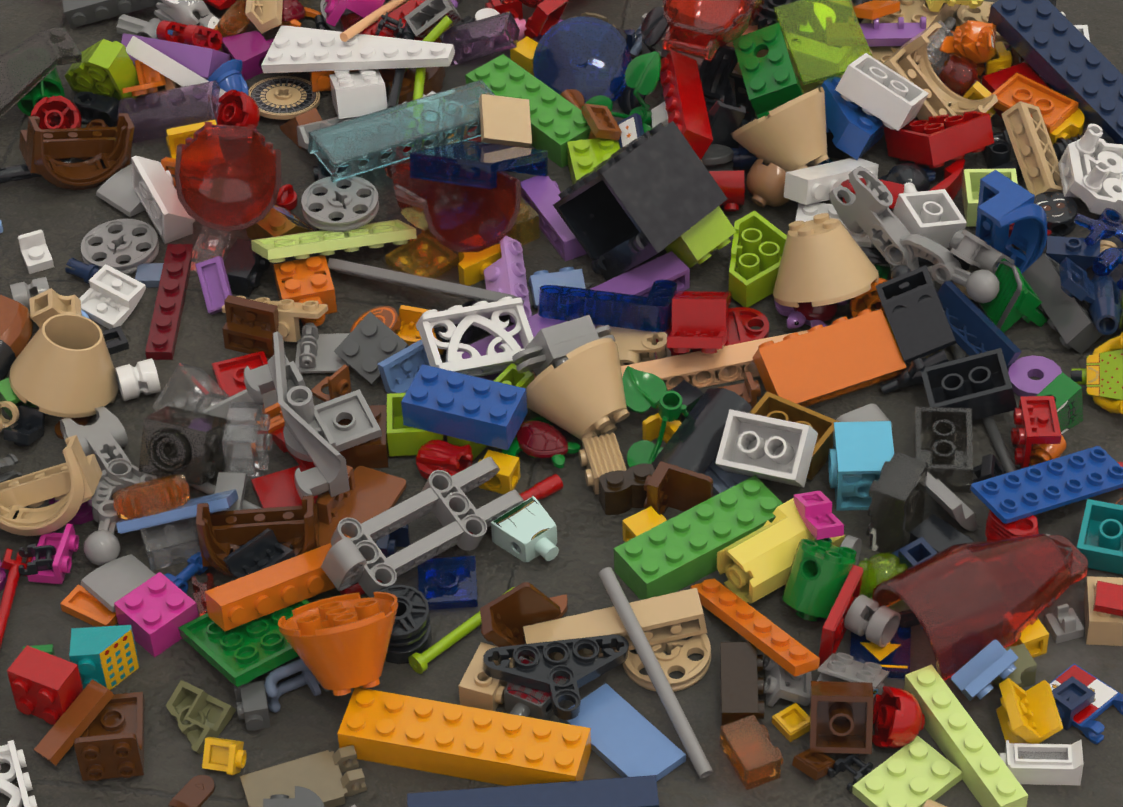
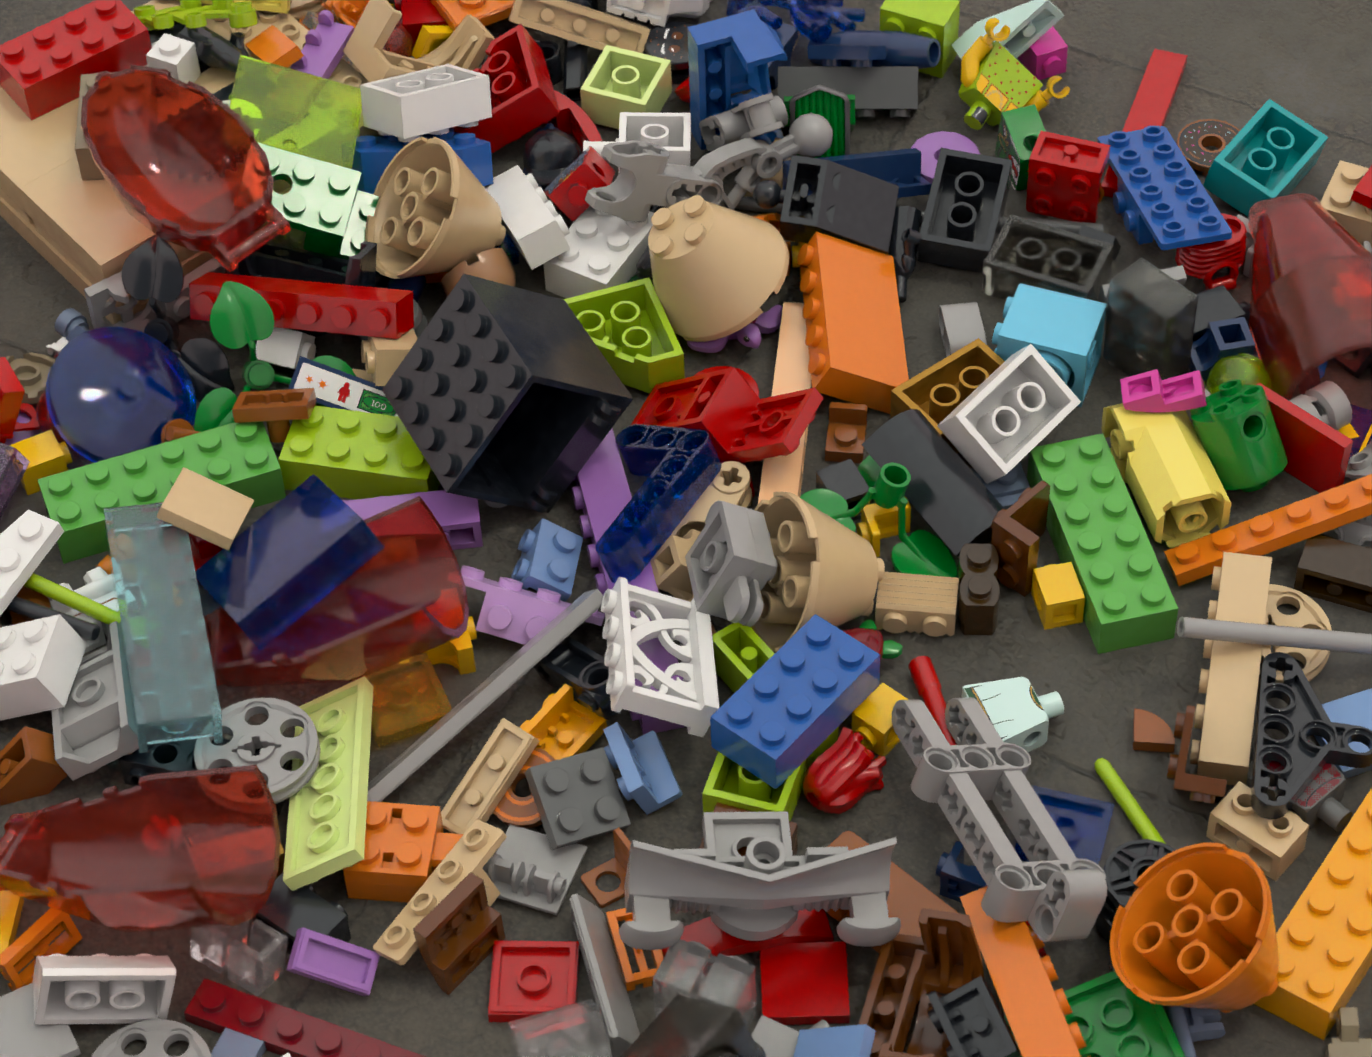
camera: 70 degrees left, 5 degrees up
(379, 305) = (488, 777): none -> tan tile

